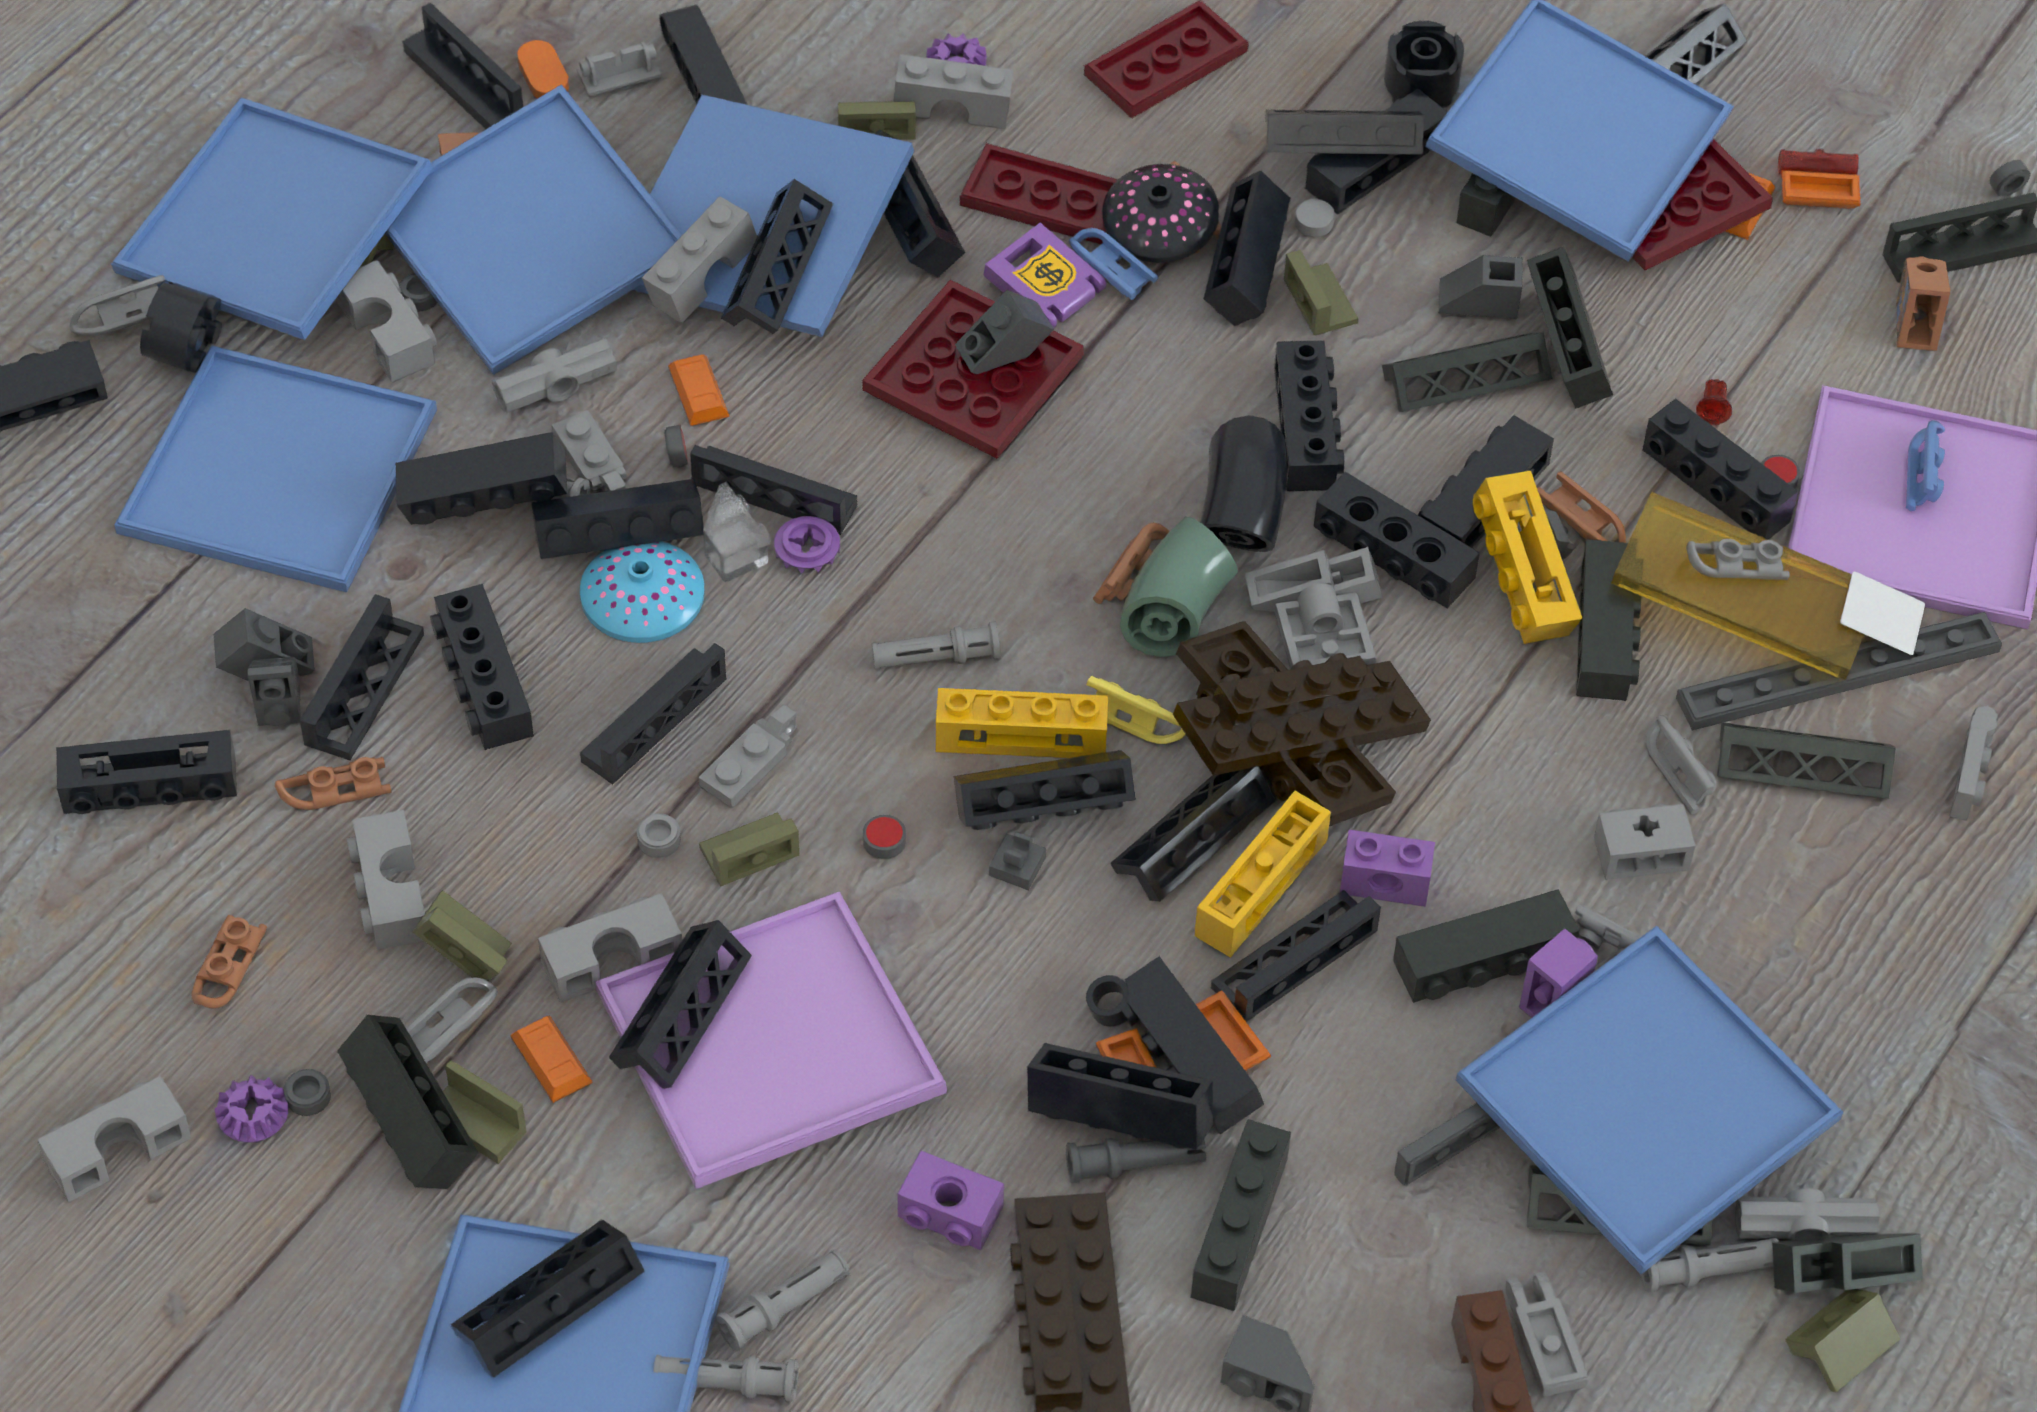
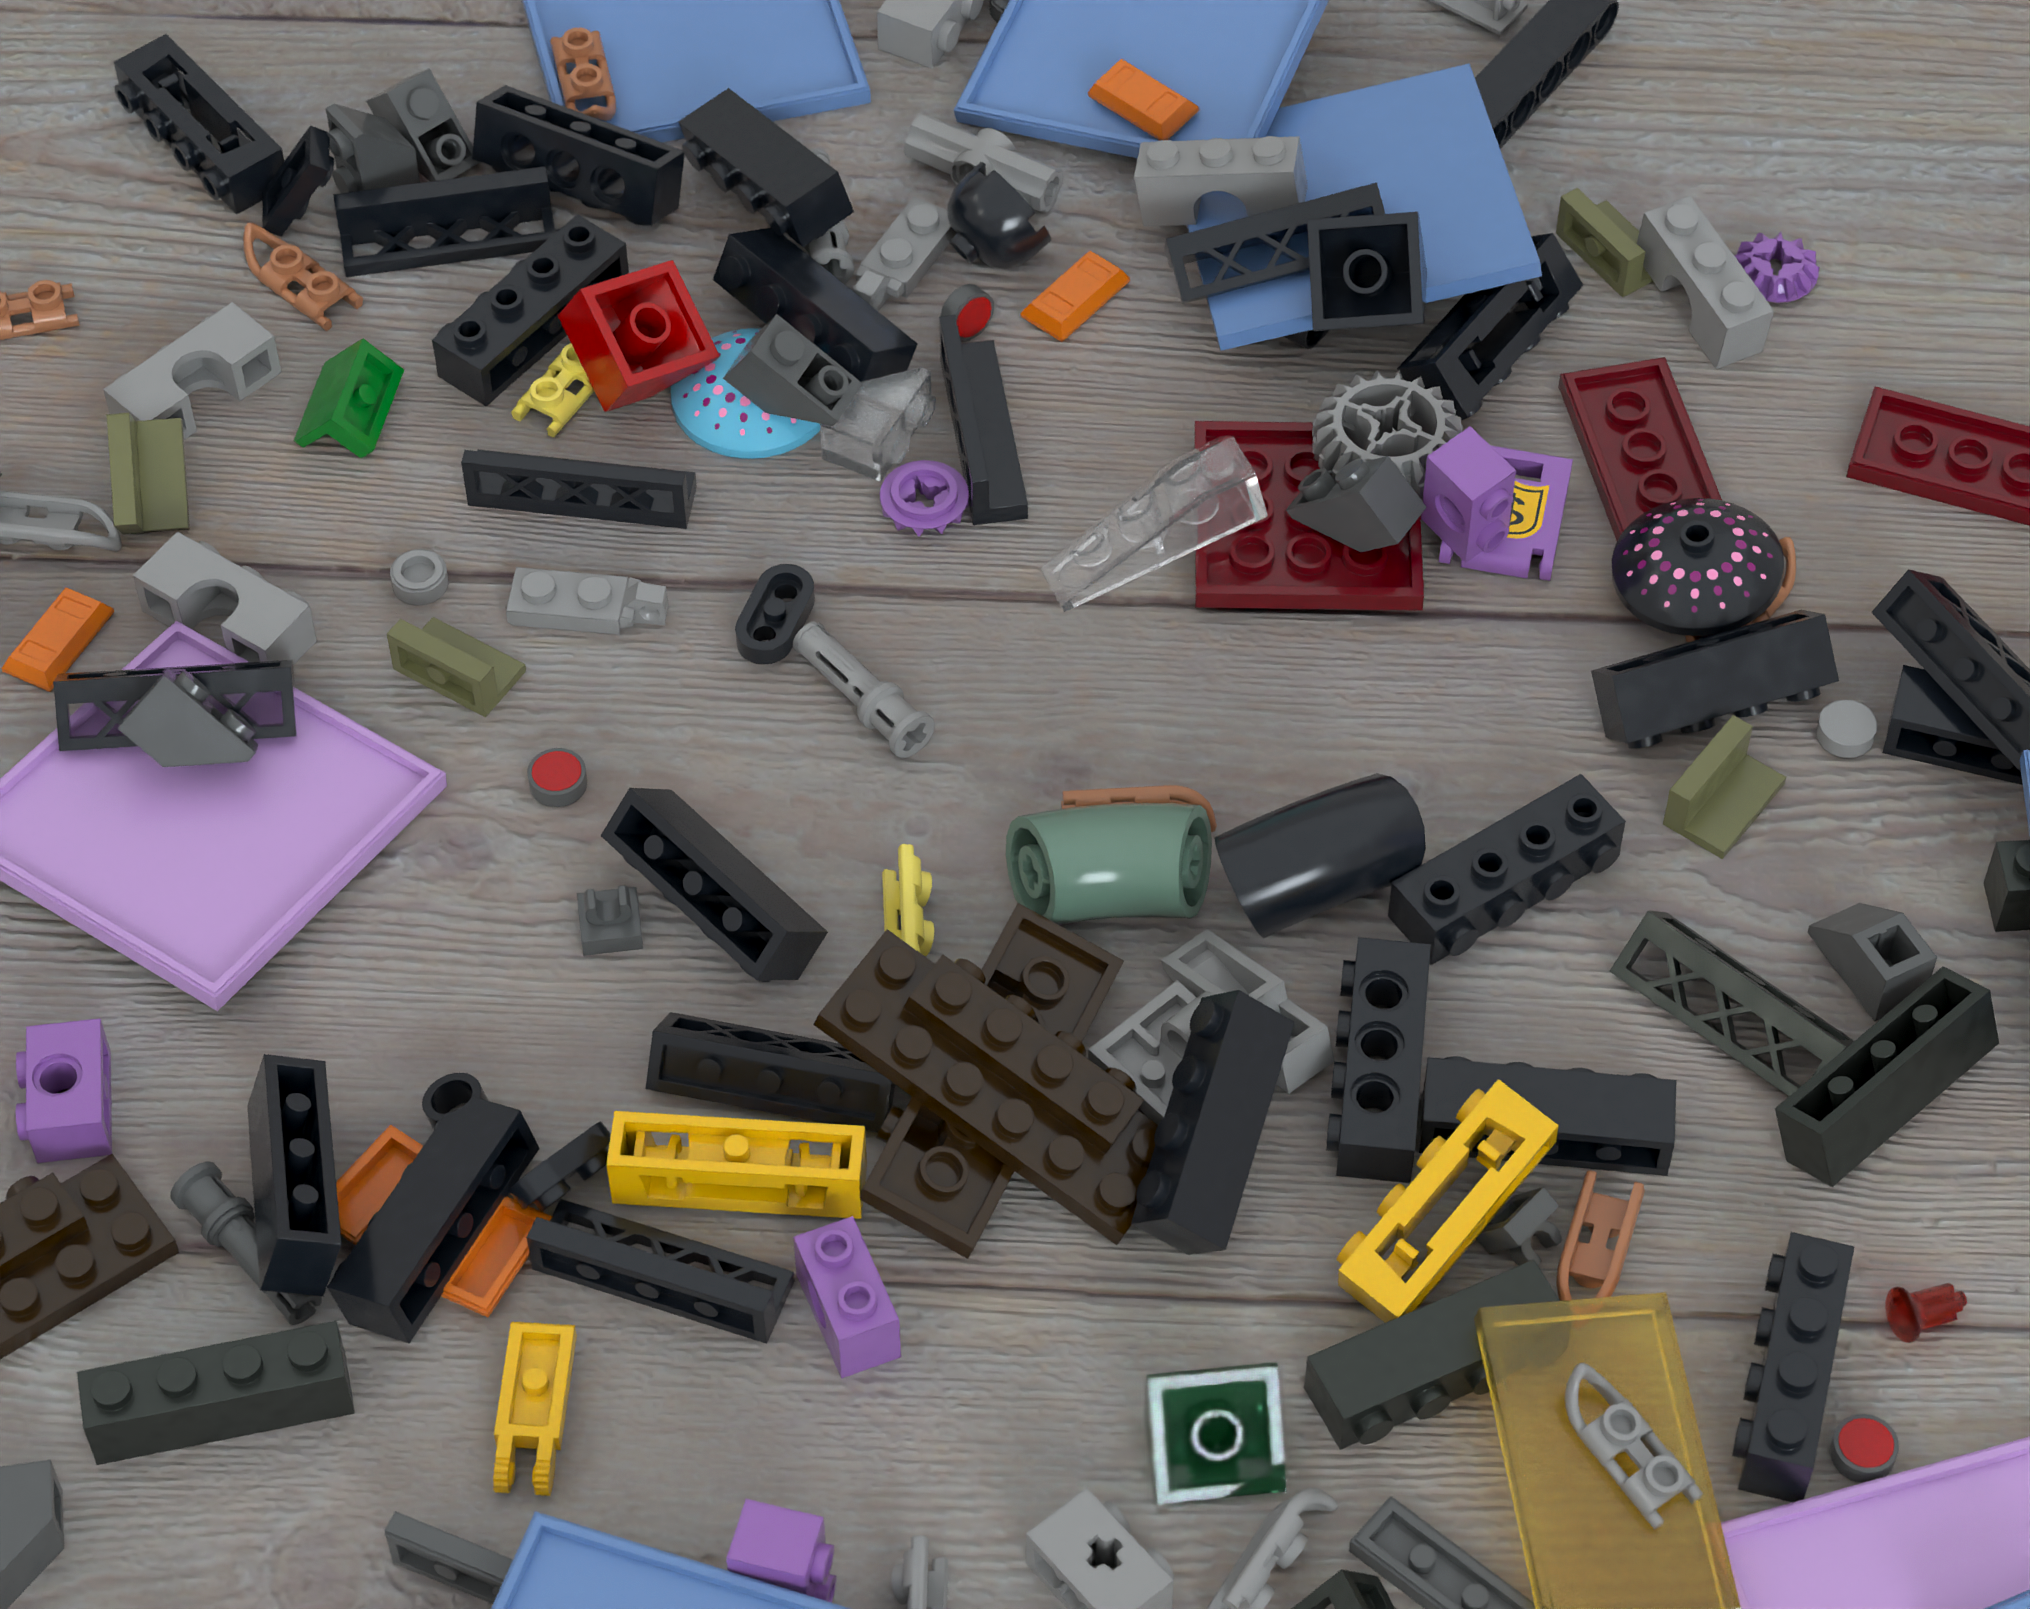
camera: 60 degrees right, 0 degrees up
(266, 736) = (296, 180): none -> black plate
(303, 541) = (586, 79): none -> nougat piece
(352, 571) = (581, 155): none -> black brick
(474, 804) = (351, 399): none -> green panel
(548, 665) = (550, 393): none -> light yellow piece
(575, 614) = (637, 334): none -> red slope
(587, 264) = (1142, 100): none -> orange tile
(618, 391) = (992, 221): none -> black cylinder
(681, 549) = (792, 376): none -> dark grey slope
(718, 1003) = (183, 728): none -> dark grey slope
(847, 665) = (770, 617): none -> black plate
(857, 224) = (1367, 271): none -> black slope
(928, 425) = (1163, 519): none -> clear wedge
(958, 289) = (1381, 421): none -> light grey gear
(1020, 722) = (801, 819): yellow brick -> none
(1052, 273) = (1468, 494): none -> medium lavender brick
(1105, 260) = (1585, 555): medium blue piece -> none
(1198, 963) = (547, 1181): none -> black plate
(1352, 1059) = (533, 1401): none -> yellow hinge
(1400, 631) = (1212, 1123): none -> black brick
(1479, 945) = (802, 1465): pearl dark grey brick -> none
(1592, 745) = (1215, 1433): none -> clear green slope

